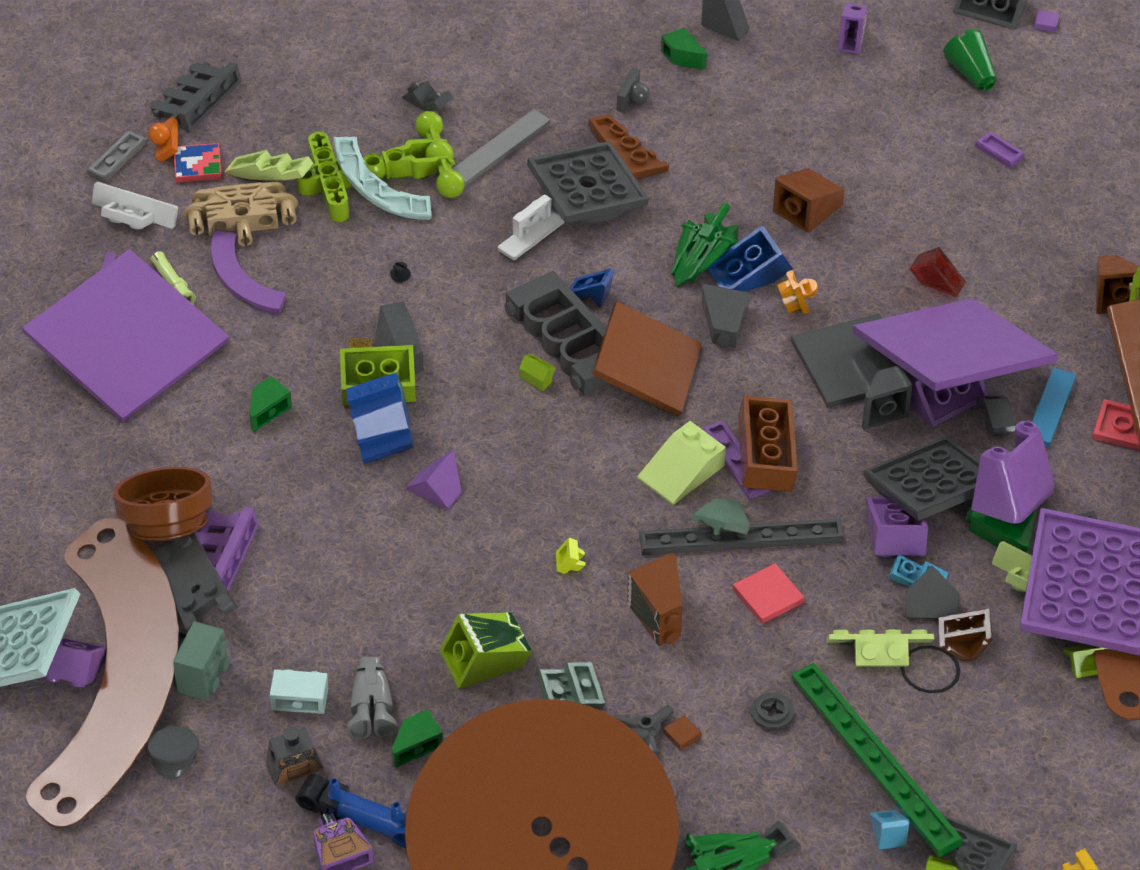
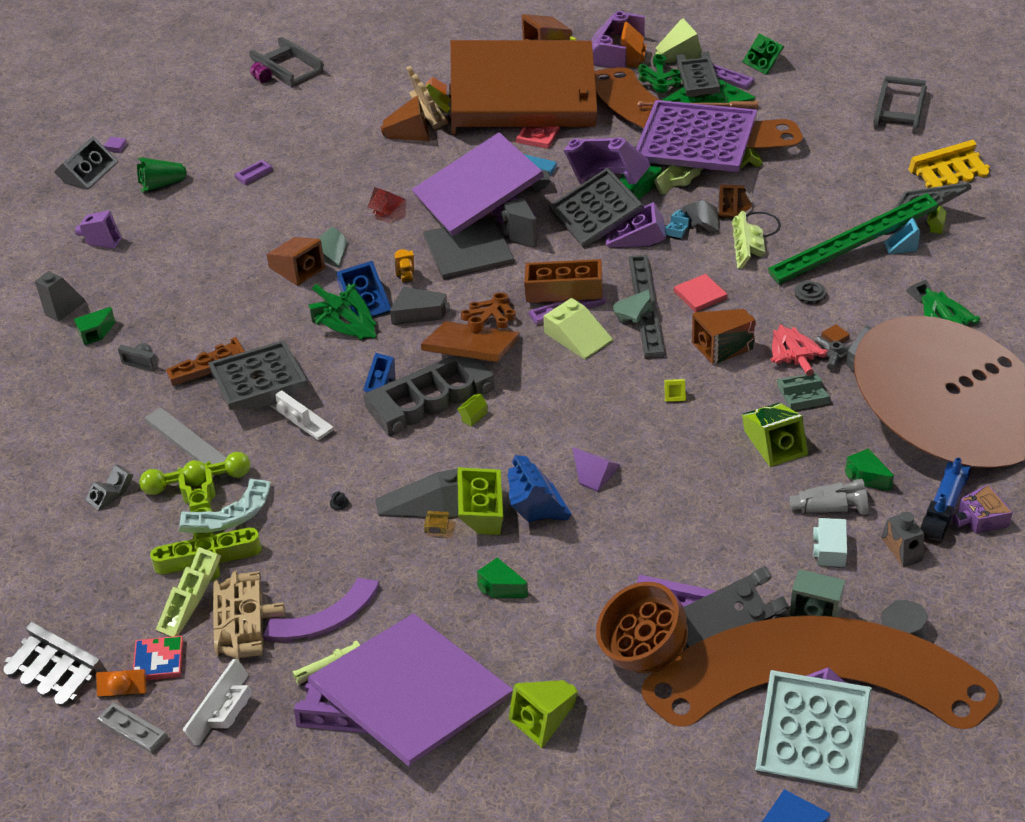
camera: 85 degrees left, 5 degrees down
(88, 435) = (541, 707): none -> lime slope
(639, 687) = (796, 353): none -> coral bar
(711, 379) = (499, 301): none -> dark orange plant
(842, 230) = (333, 246): none -> sand green slope

